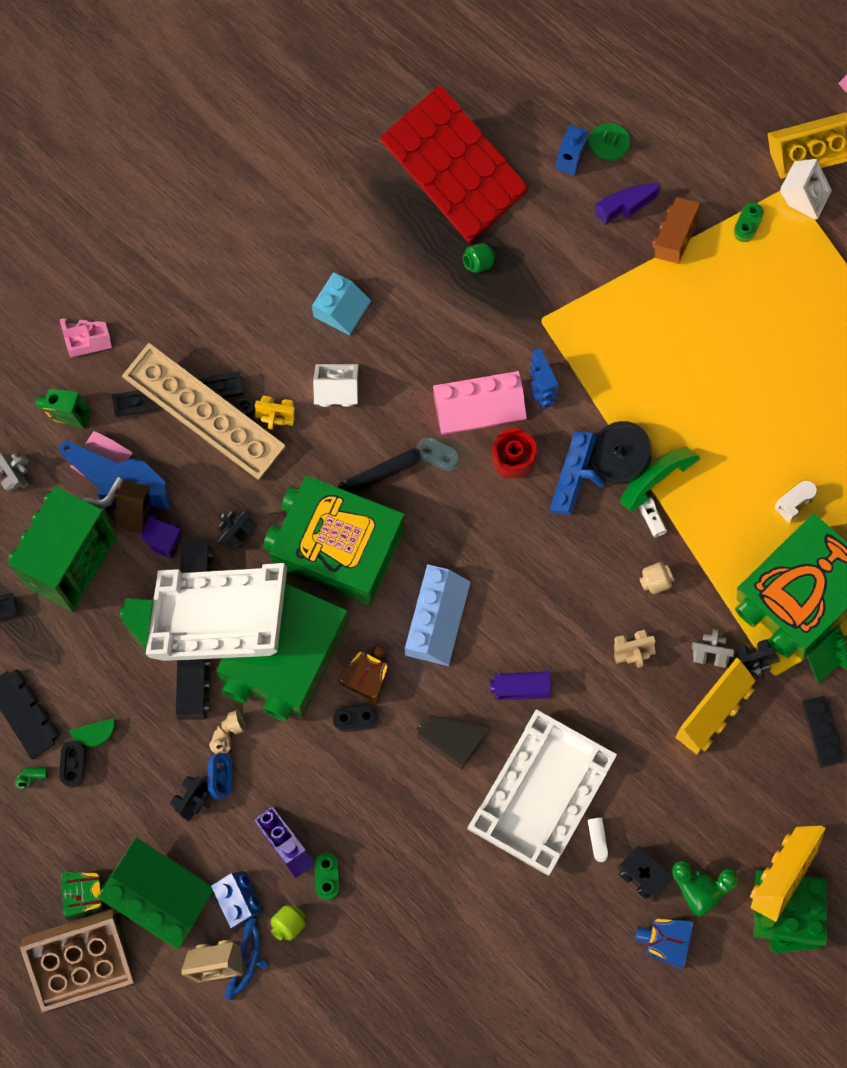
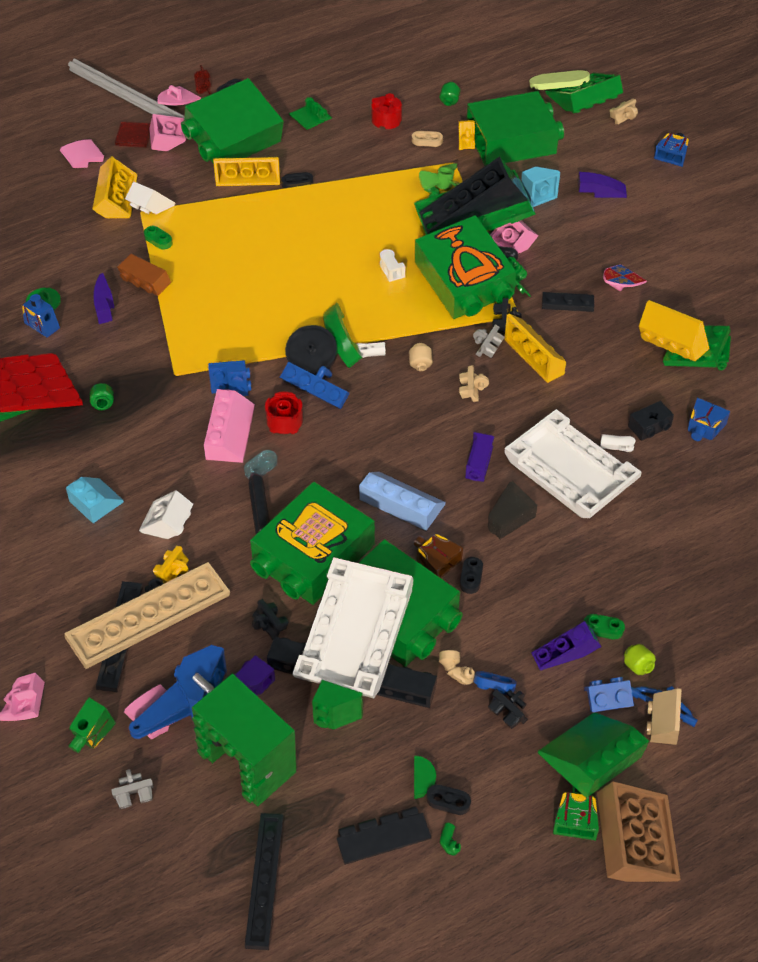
camera: 75 degrees left, 20 degrees down
(132, 506) = (222, 665): dark brown brick -> none
(700, 889) = (673, 390): green head -> none

